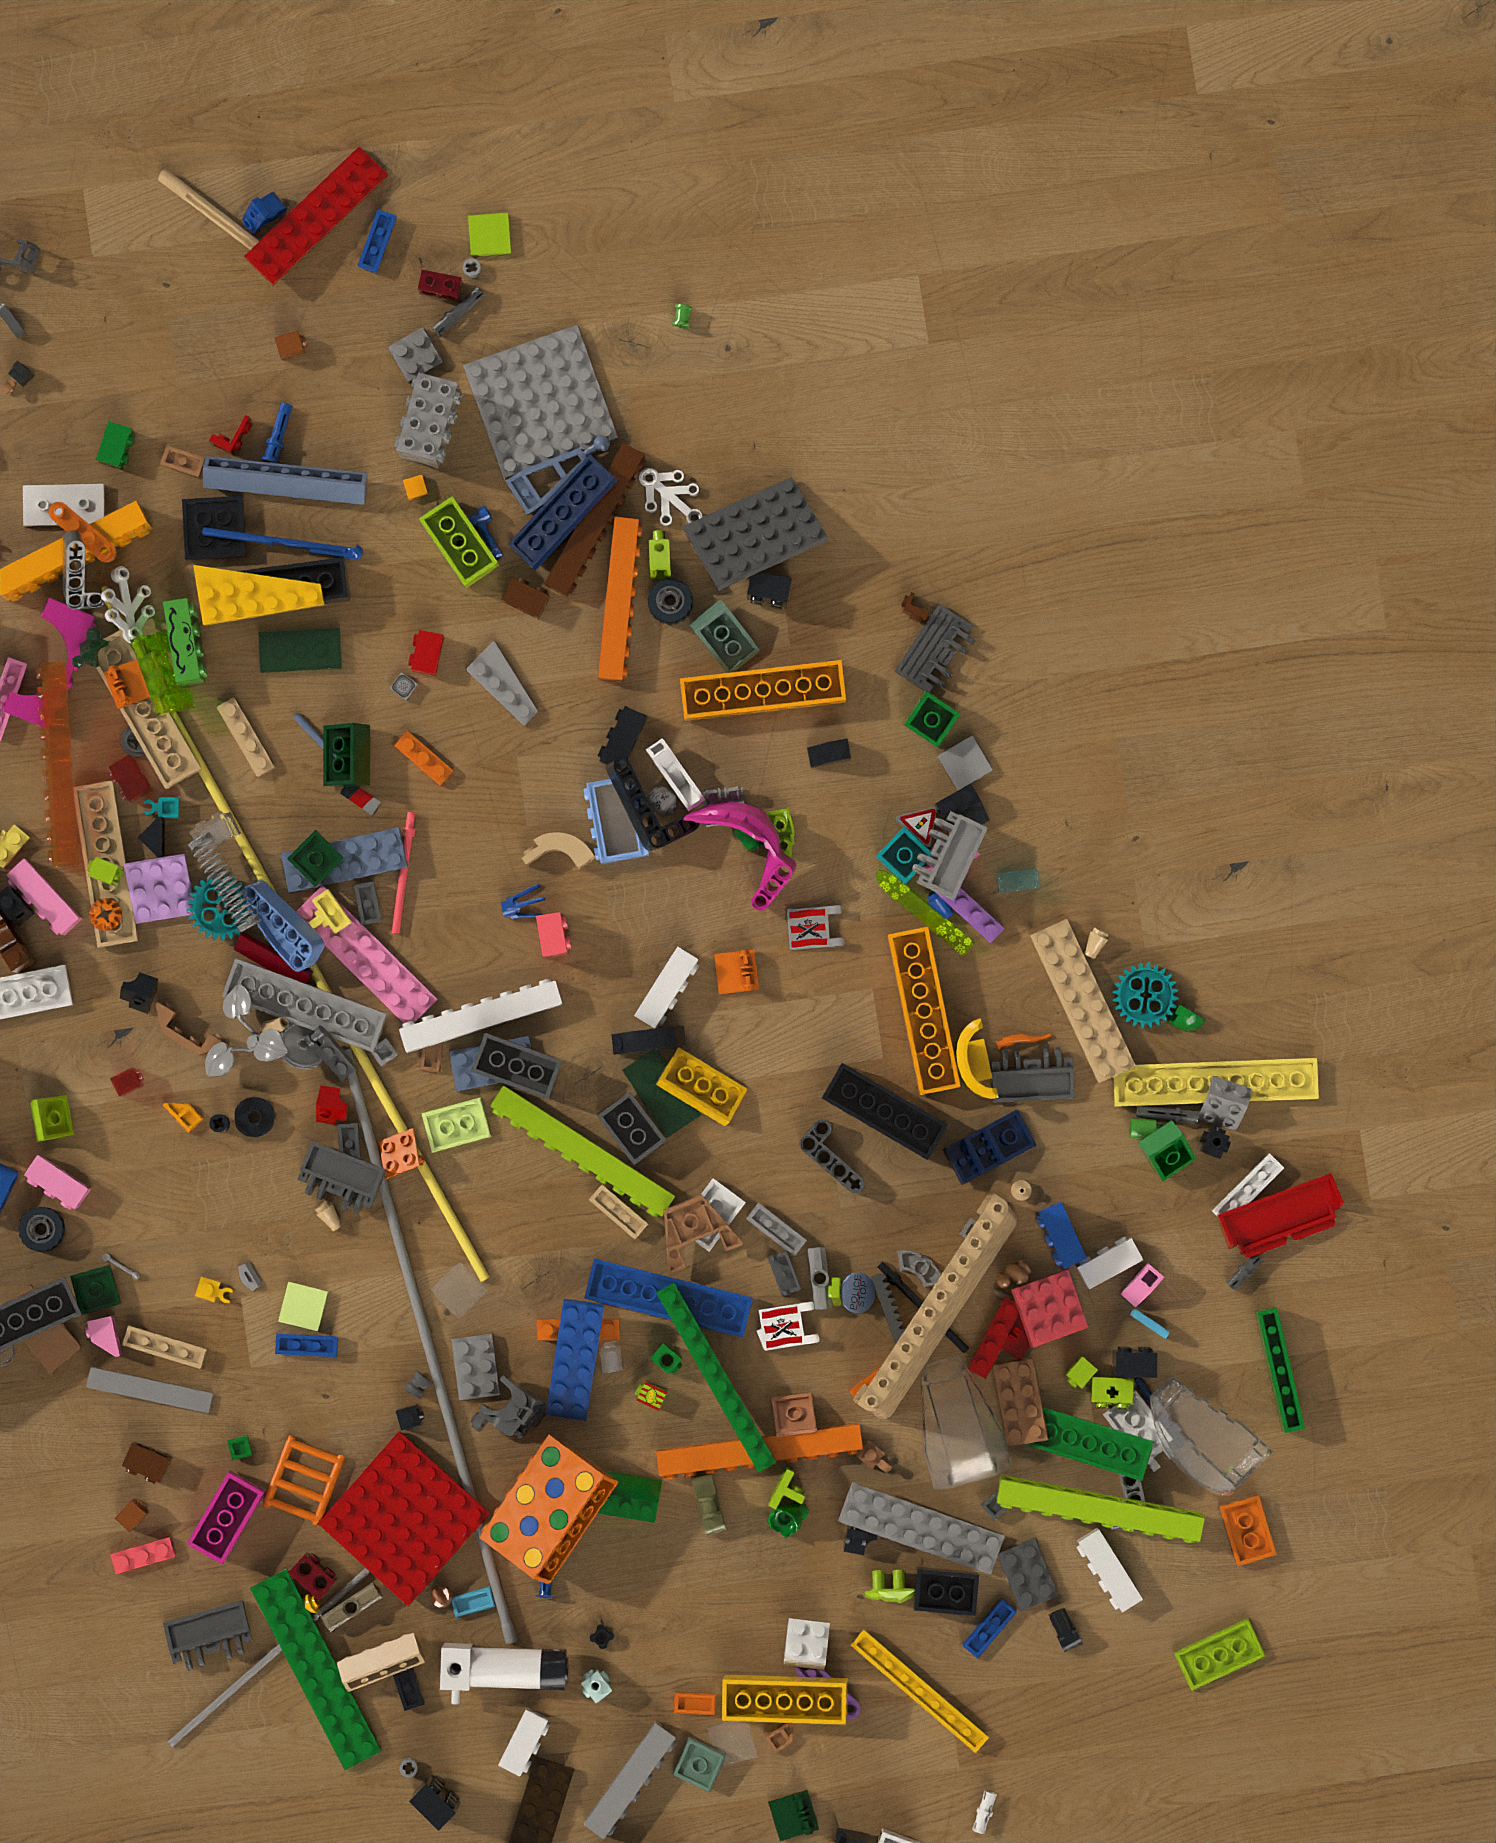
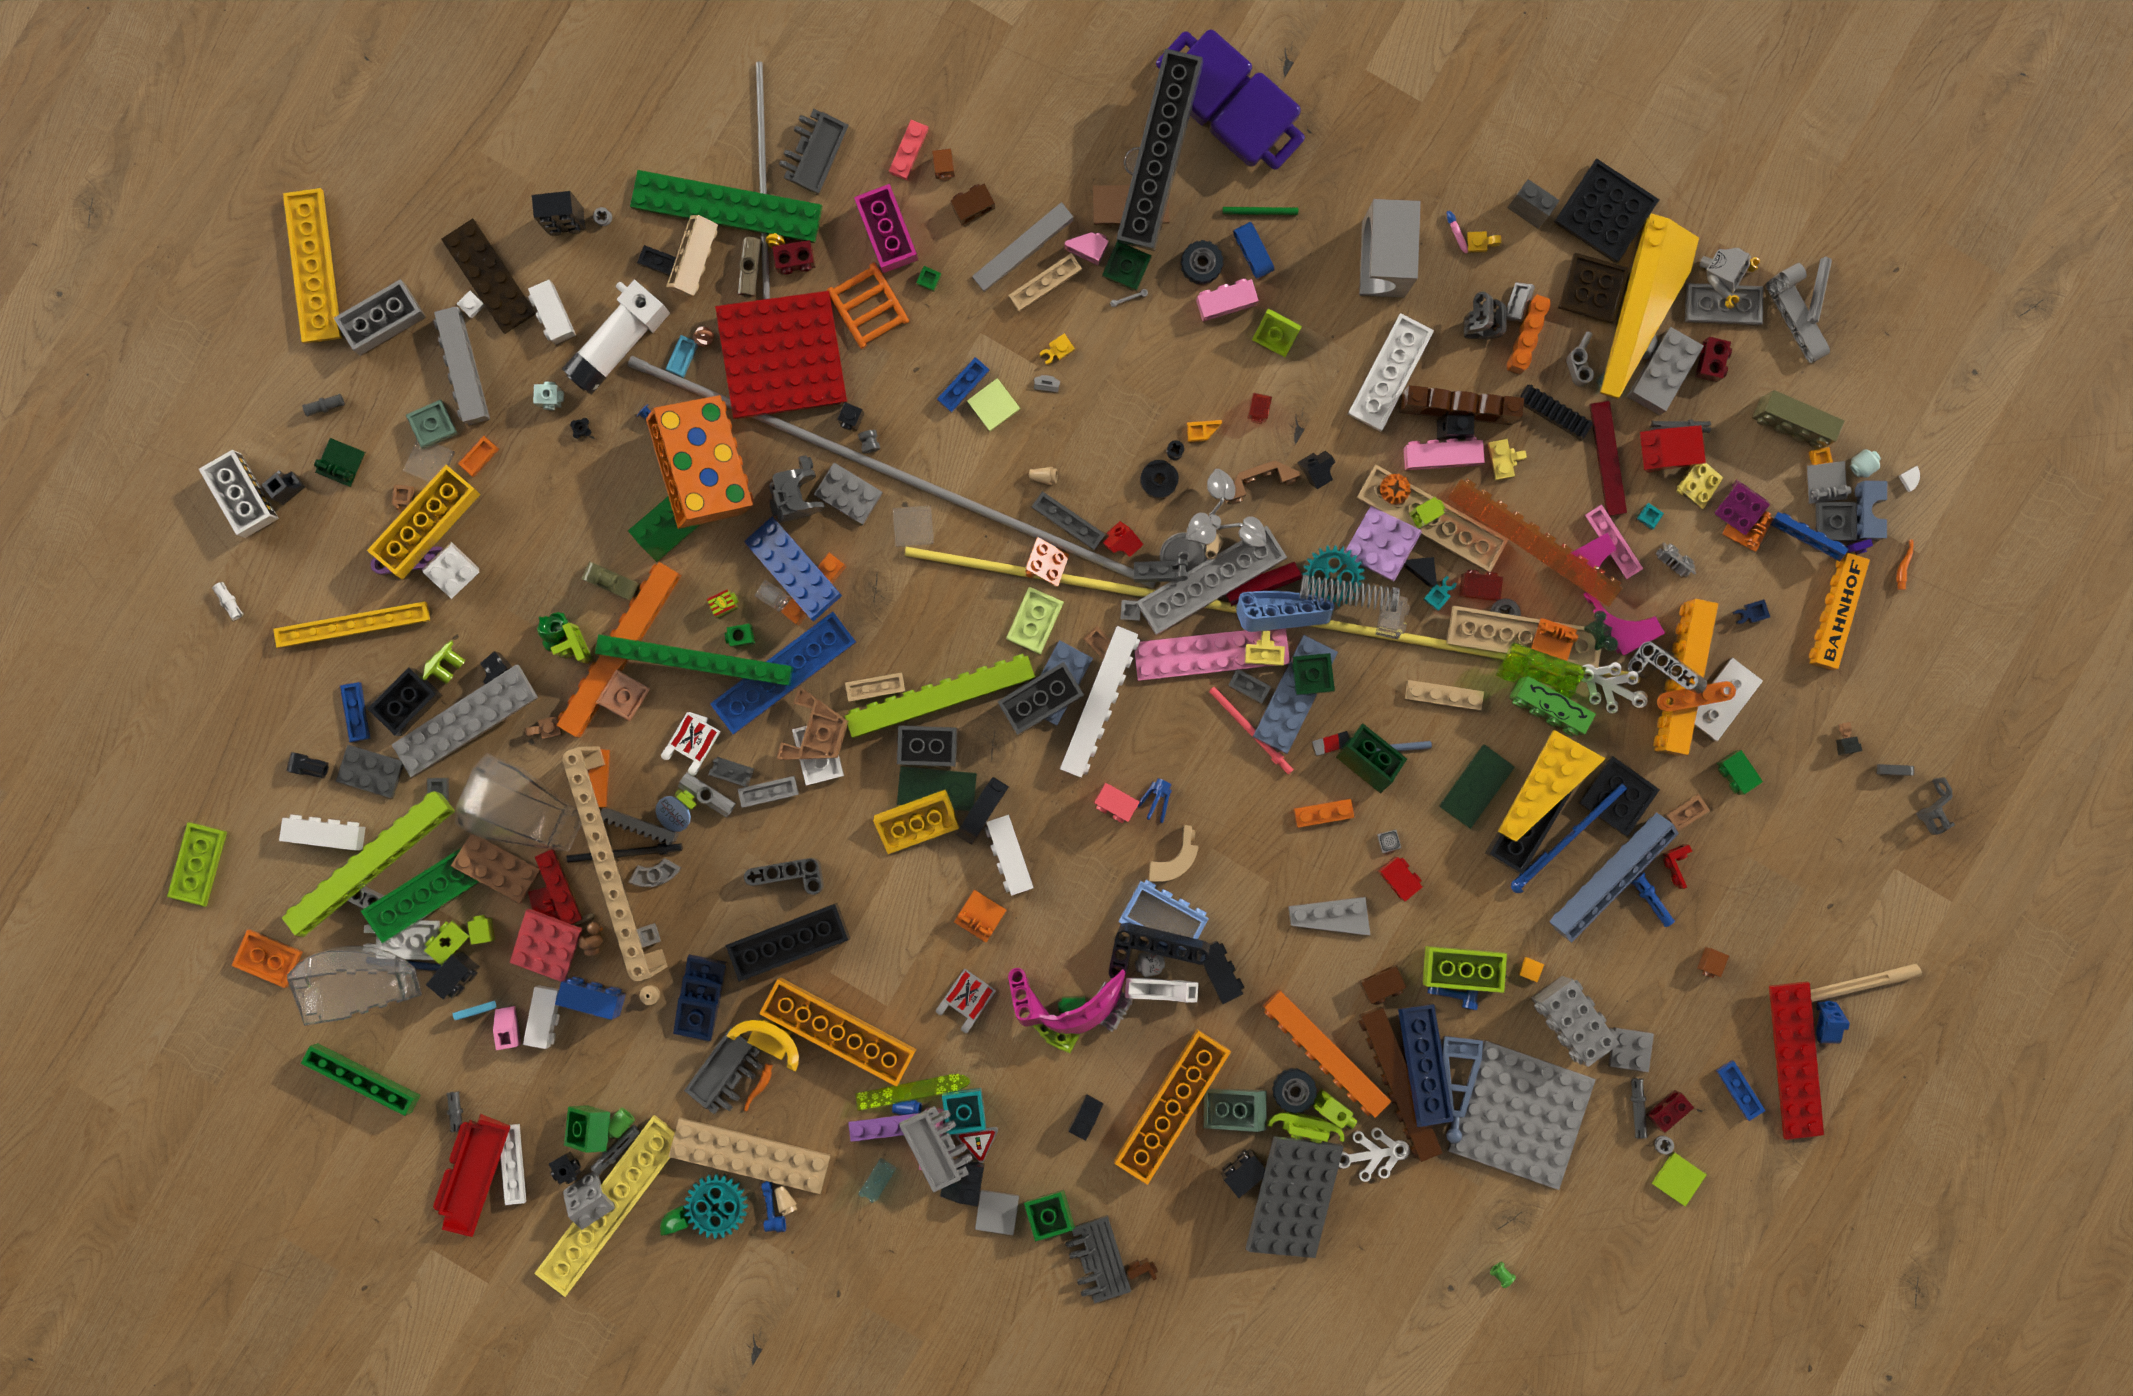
camera: 125 degrees right, 0 degrees up
(340, 1173) = (1067, 507): dark grey hinge -> none
(572, 1817) = (470, 304): none -> white plate
(690, 569) = (1307, 1126): none -> lime plate
(1121, 937) = (773, 1223): none -> blue brick

